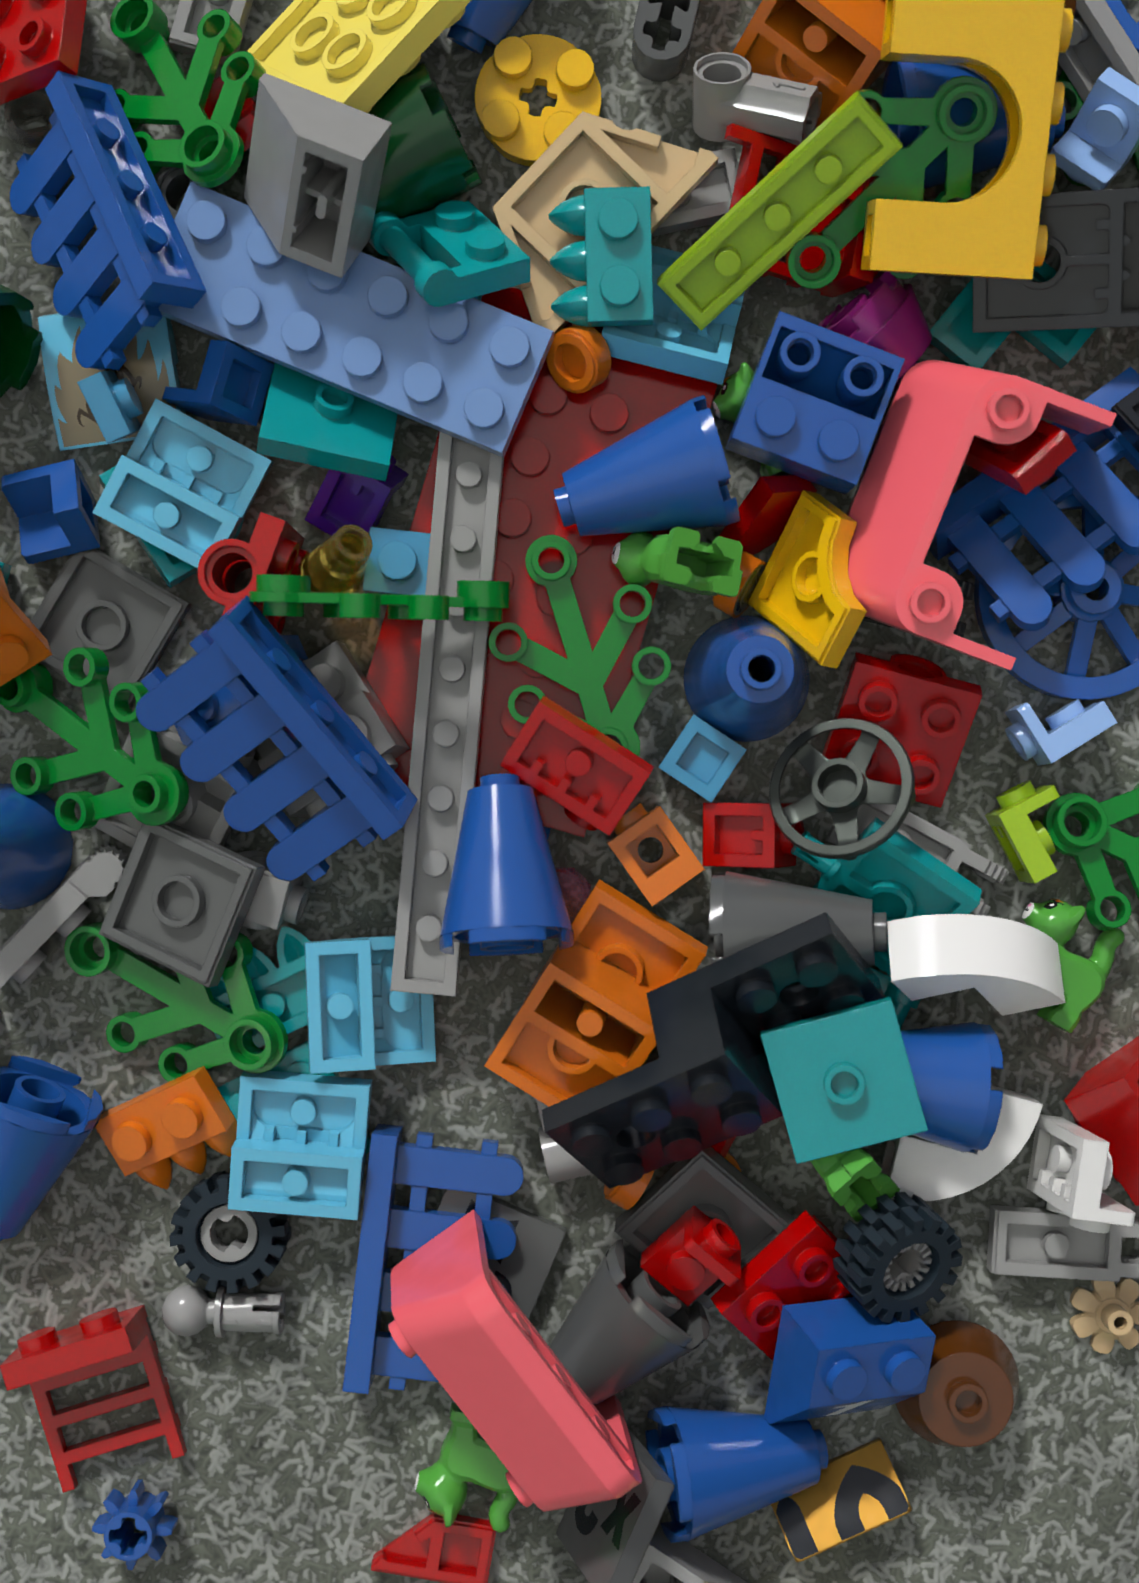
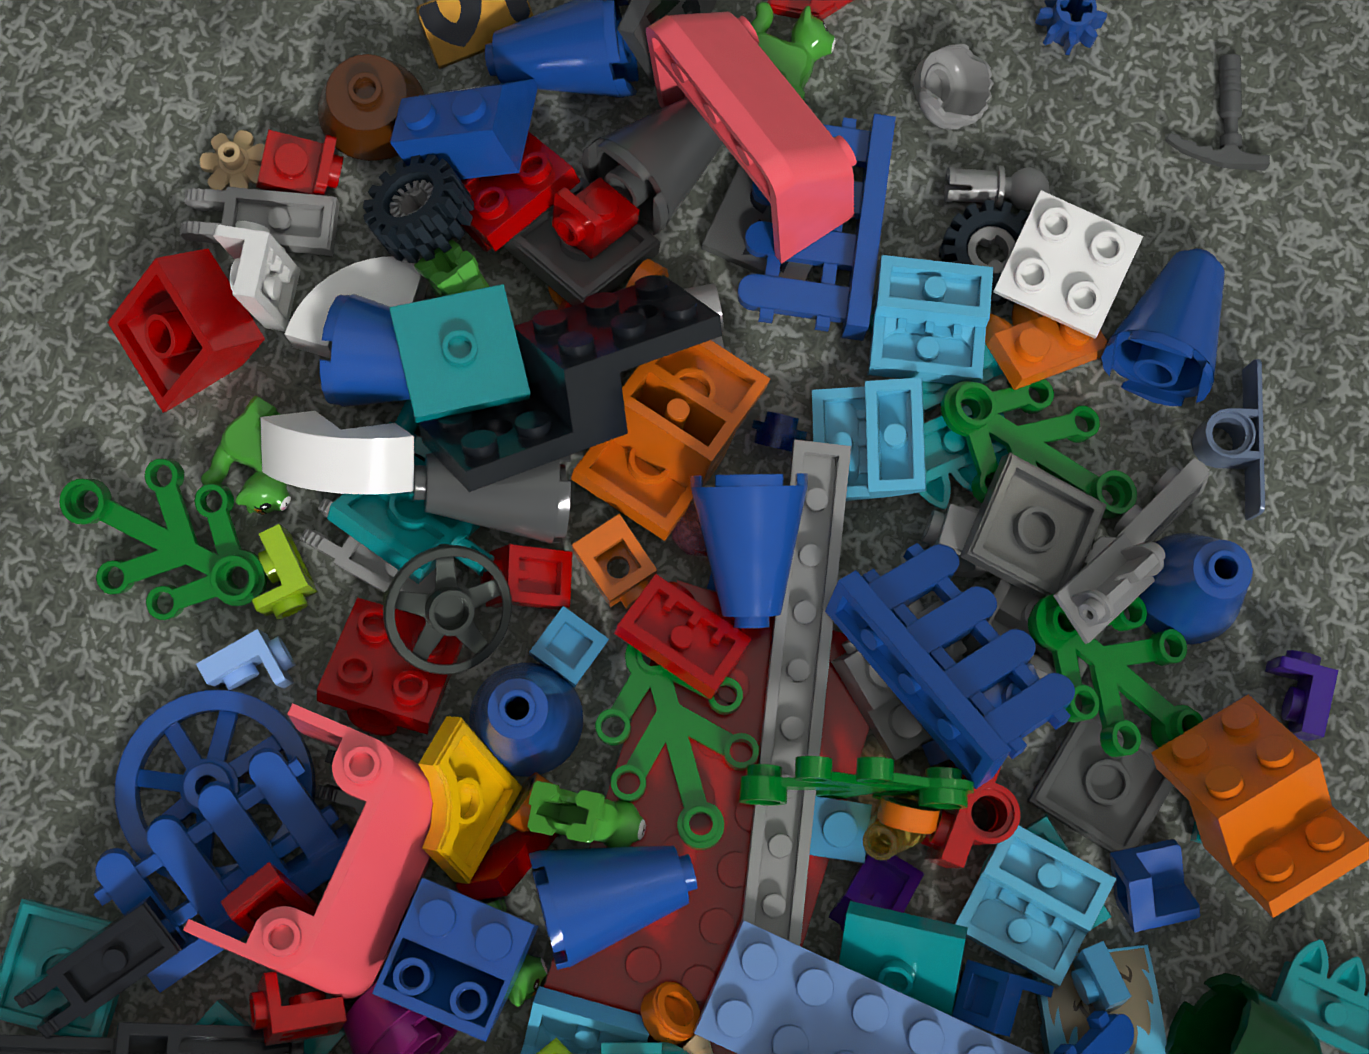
camera: 170 degrees right, 10 degrees down
(92, 1348) = (1111, 159): red plate -> none
(96, 836) = (1109, 584): none -> light grey hinge
(140, 1216) = (1068, 264): none -> white plate
(275, 1433) = (952, 86): none -> light grey hair
(328, 569) = (907, 815): none -> orange tile
(473, 1011) = (778, 431): none -> clear blue plate
(973, 341) = (304, 1018): none -> red bracket
(1037, 1311) = (299, 164): none -> red bracket

